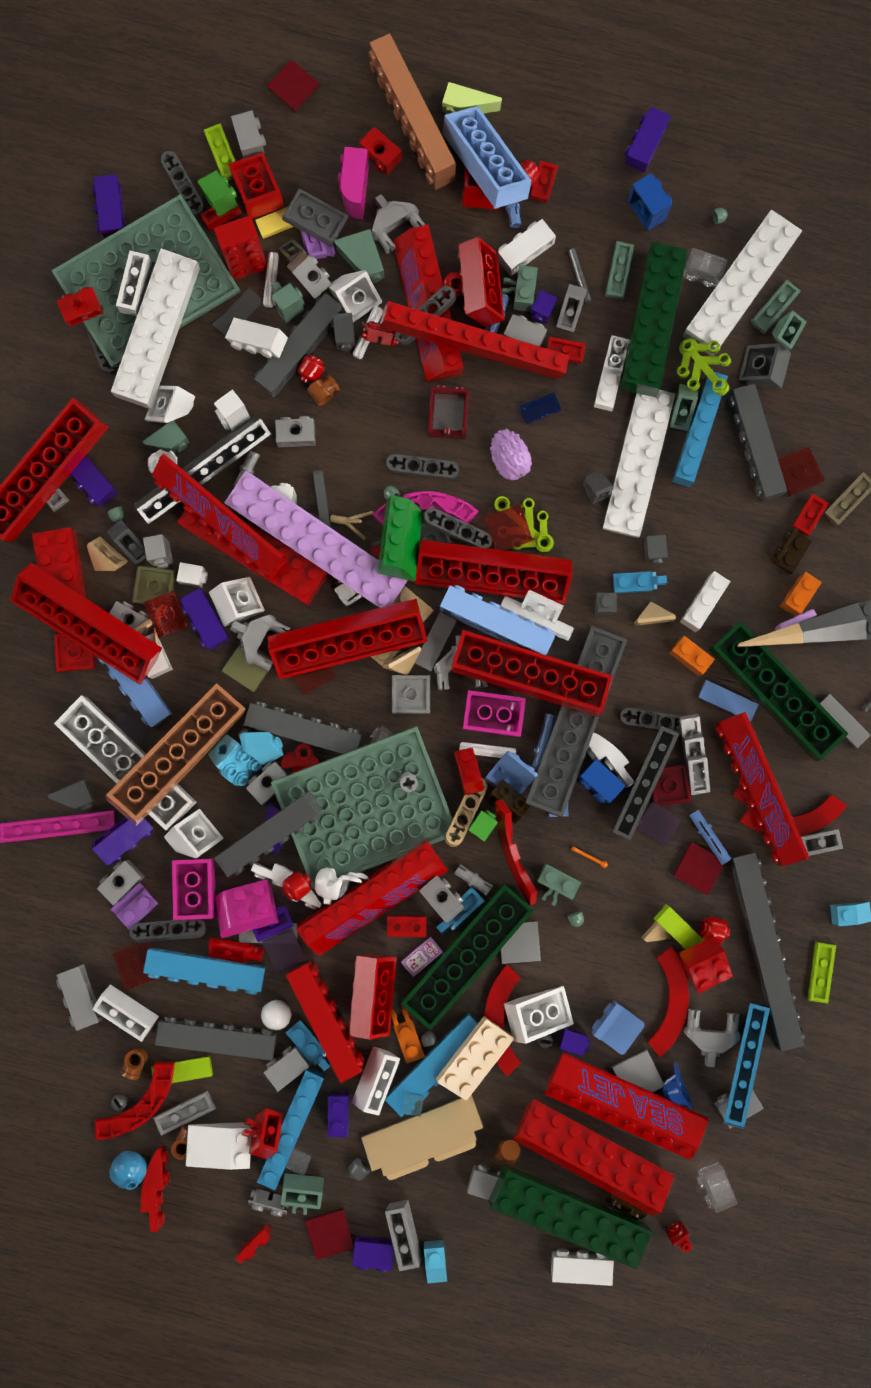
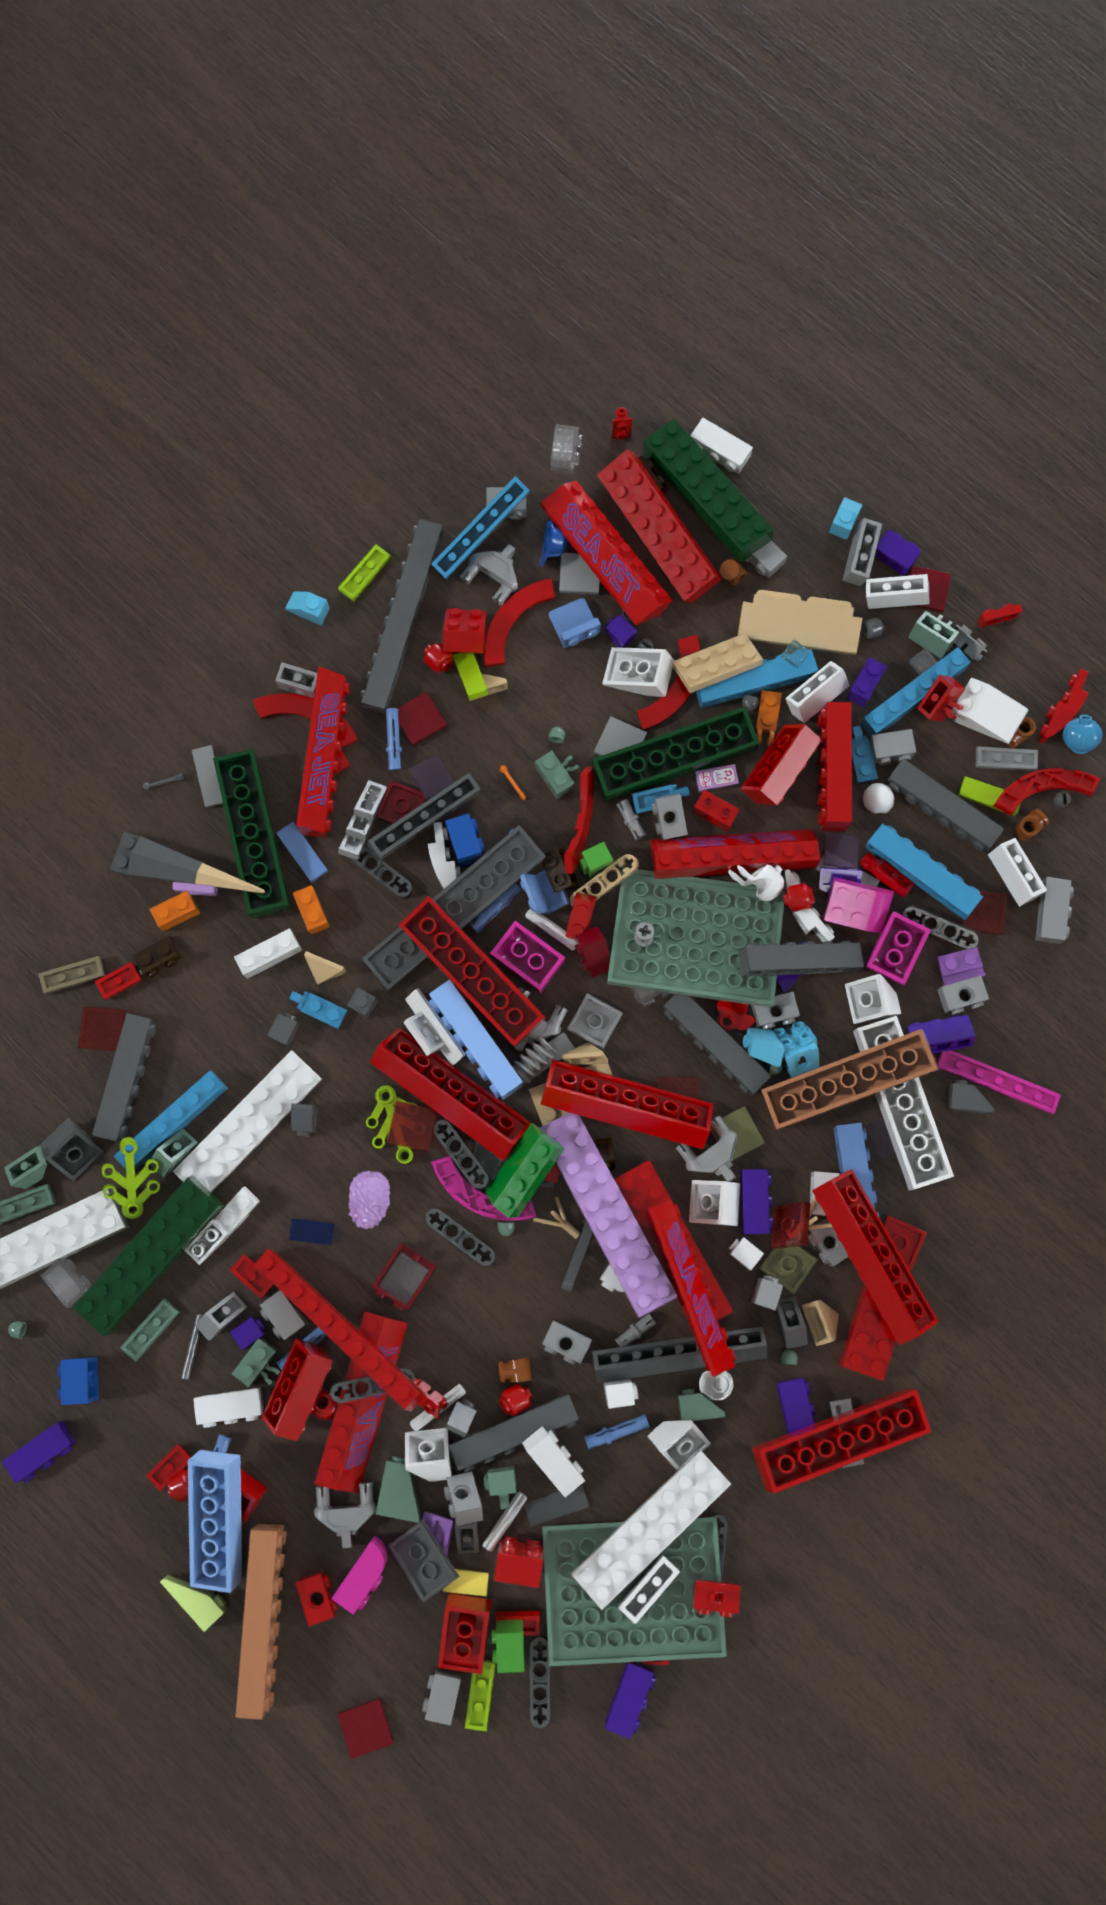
camera: 150 degrees left, 5 degrees down
(221, 387) = (610, 1434): none -> medium blue pin
(353, 1213) = (897, 591): none -> white brick
(440, 632) = (534, 1058): none -> light grey piece
(441, 747) = (594, 951): none -> dark red brick

